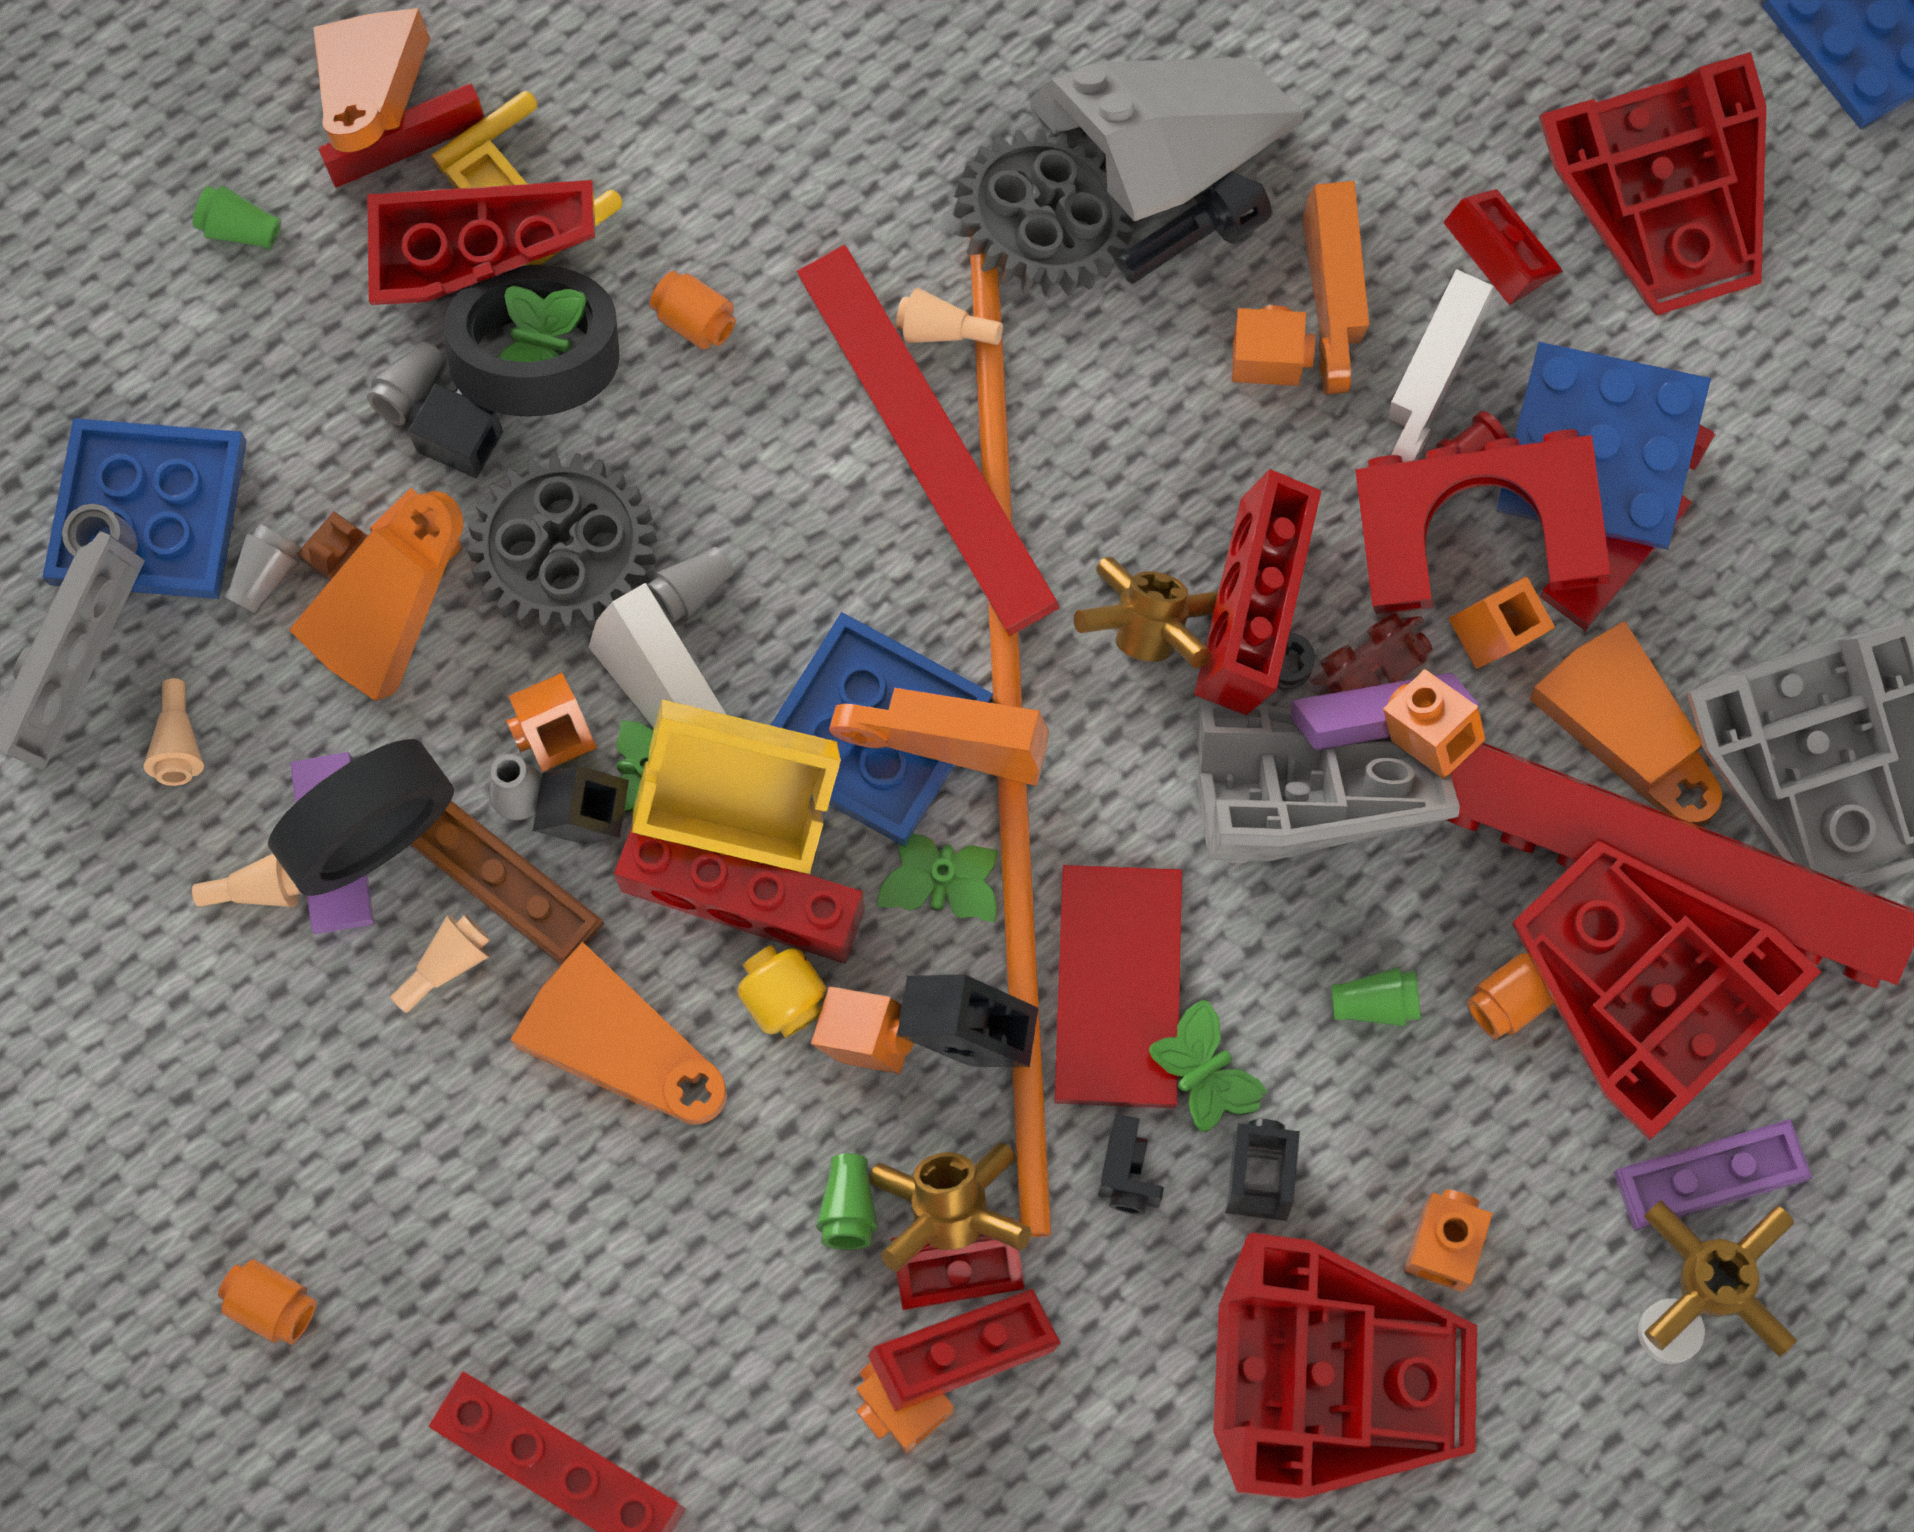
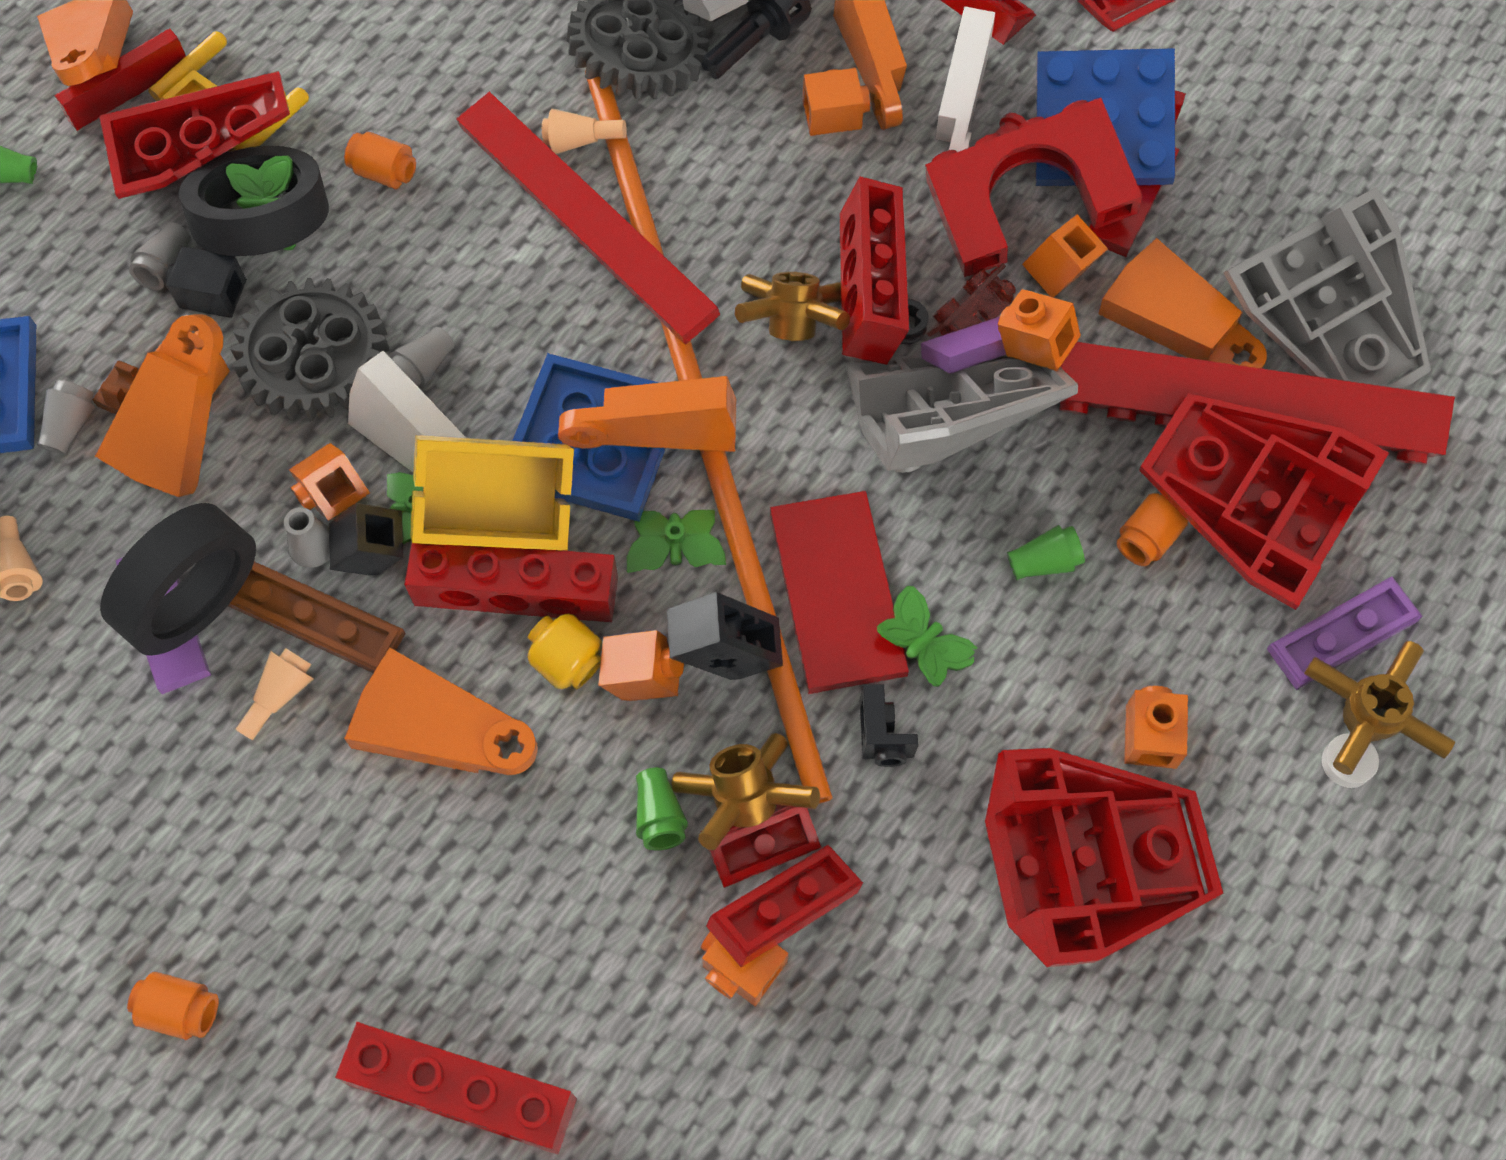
camera: 15 degrees left, 5 degrees down
(256, 884) = (106, 661): light nougat cone -> none
(1263, 1170) = (993, 706): black window -> none

